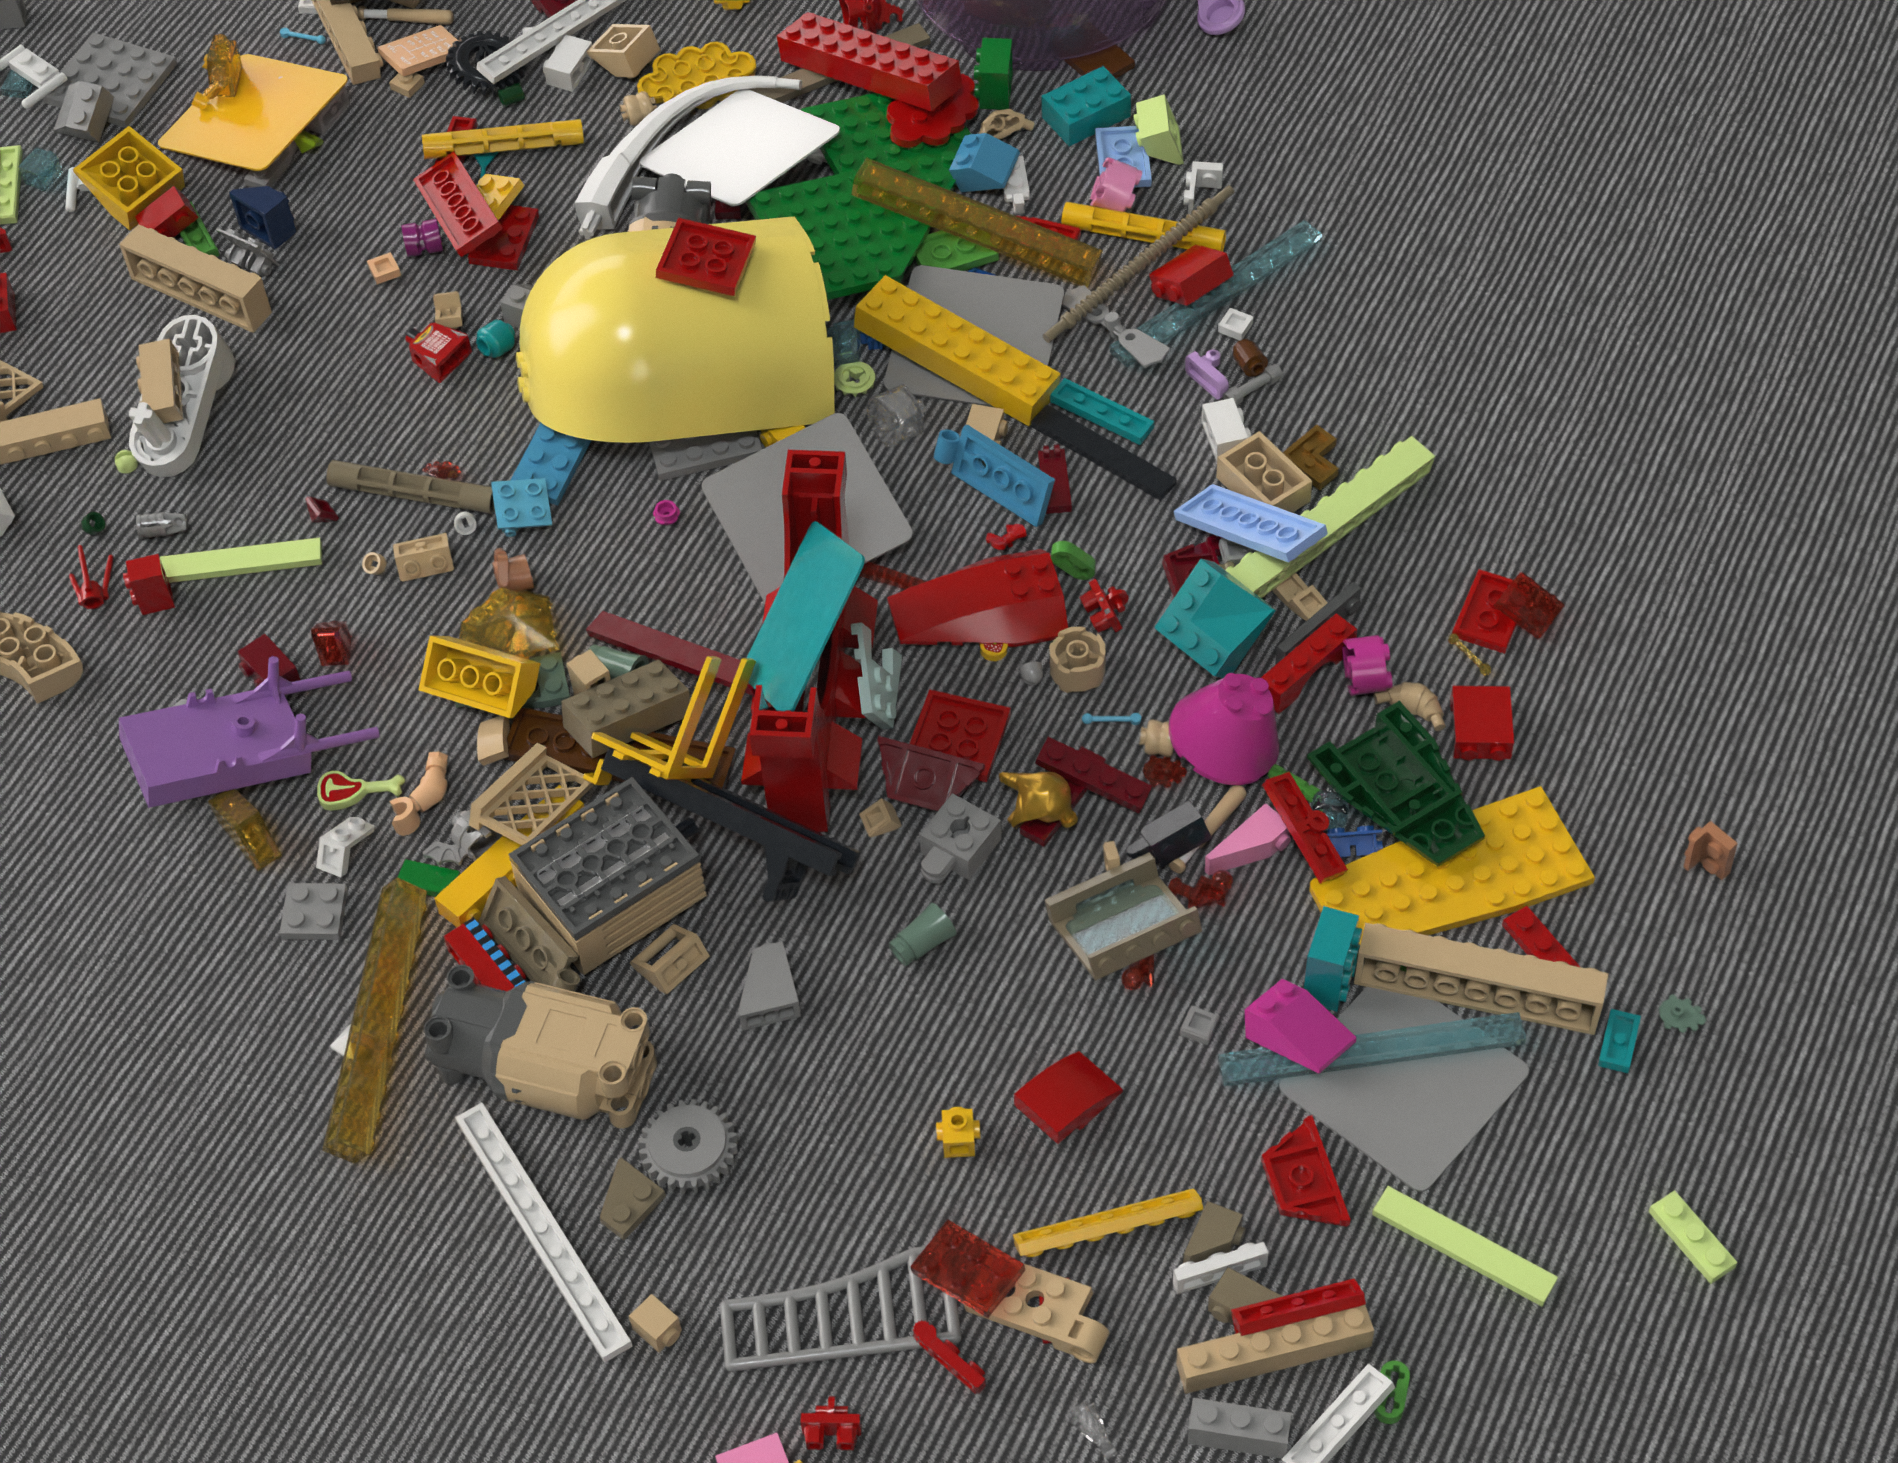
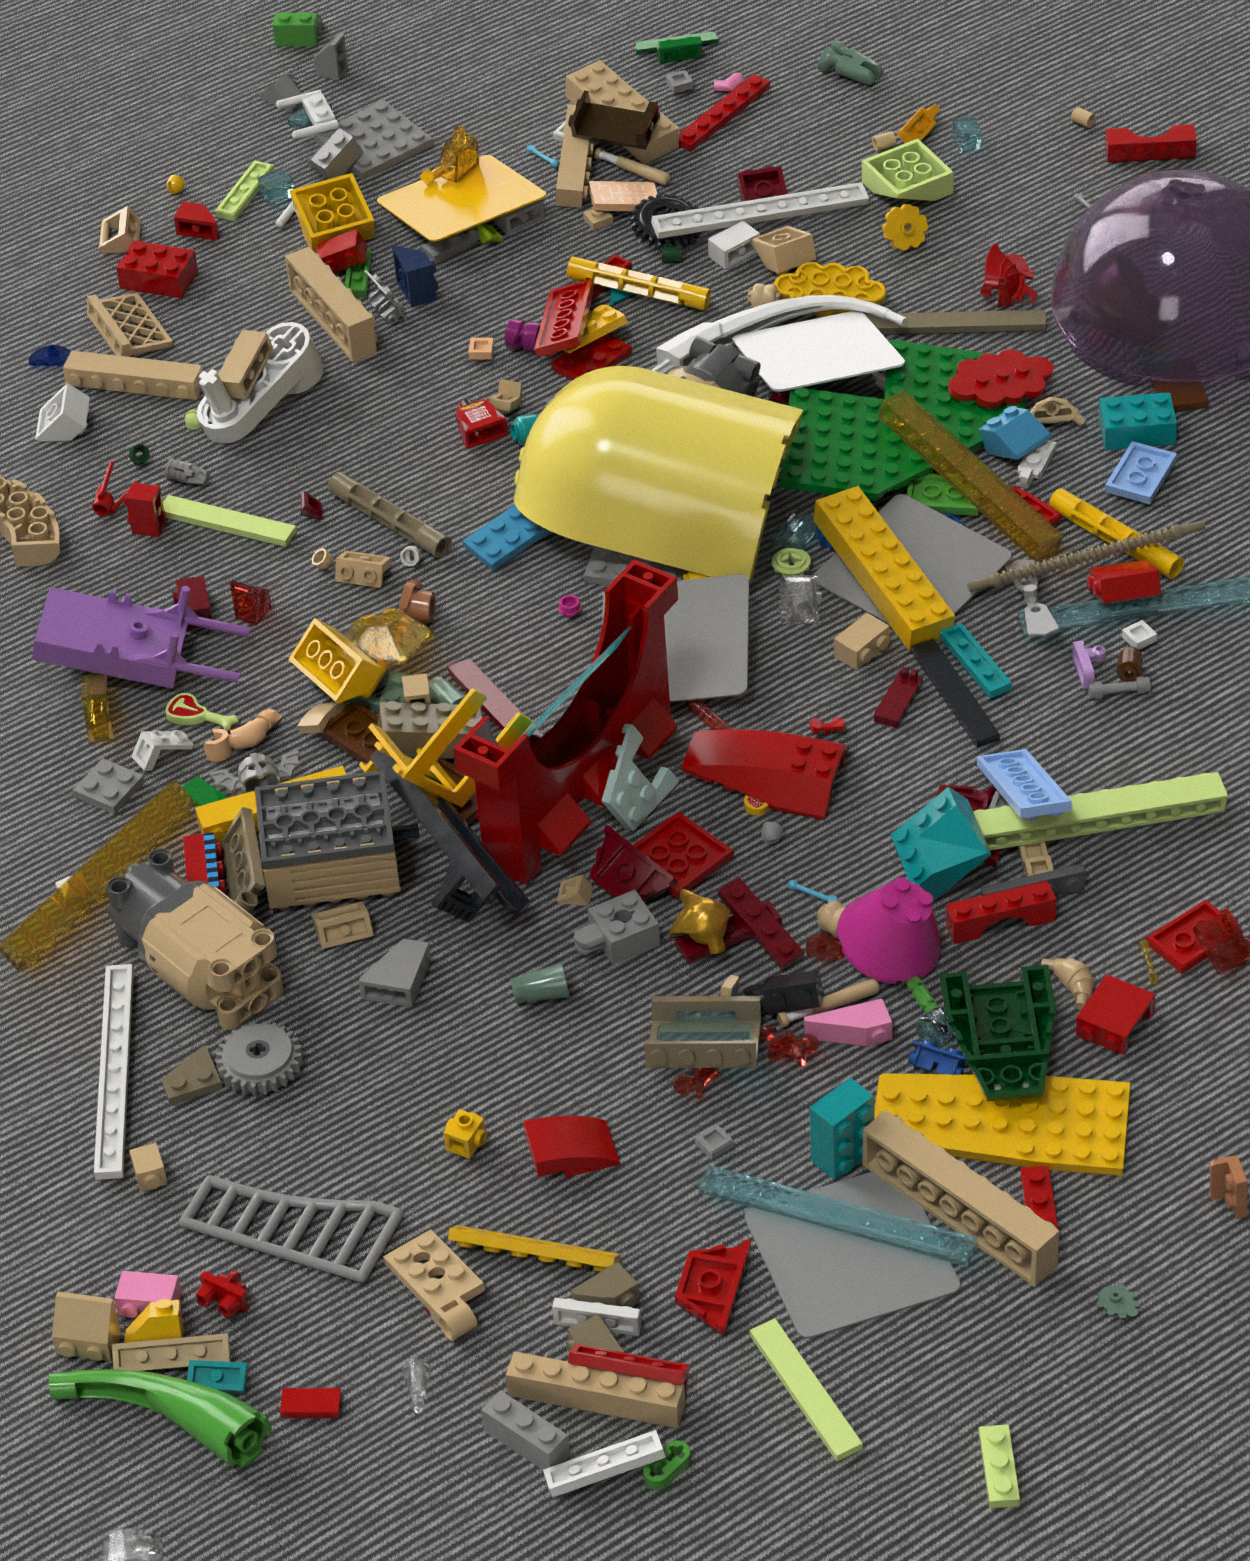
camera: 30 degrees right, 10 degrees down
(442, 470) = (420, 511): clear red piece -> none
(513, 787) = (305, 749): tan fence -> none
(521, 504) = (459, 557): medium azure hinge -> none
(706, 256) = (690, 405): red plate -> none
(870, 61) = (972, 321): red brick -> none
(947, 1355) = (342, 1282): red hinge -> none
(967, 1268) = (401, 1229): clear red plate -> none
(994, 73) = (1074, 368): green brick -> none
(1004, 479) = (847, 670): dark azure hinge -> none
(1073, 560) = (863, 760): bright green beam -> none
(1077, 660) = (811, 835): tan brick -> none
(1097, 598) = (867, 806): red hips -> none
(1115, 186) = (1109, 489): bright pink brick -> none
(1158, 130) = (1183, 460): yellowish green slope -> none
(1202, 175) = (1195, 509): white bracket -> none
(1223, 425) = (1068, 711): white brick -> none
(1264, 473) = (1069, 756): tan brick -> none
(1297, 1027) = (782, 1168): dark pink slope -> none
(1305, 826) = (899, 1027): red hinge -> none
(1308, 456) = (1123, 757): pearl gold plate -> none
(1366, 664) = (1045, 930): dark pink brick -> none
(1619, 1040) = (1048, 1296): teal plate -> none

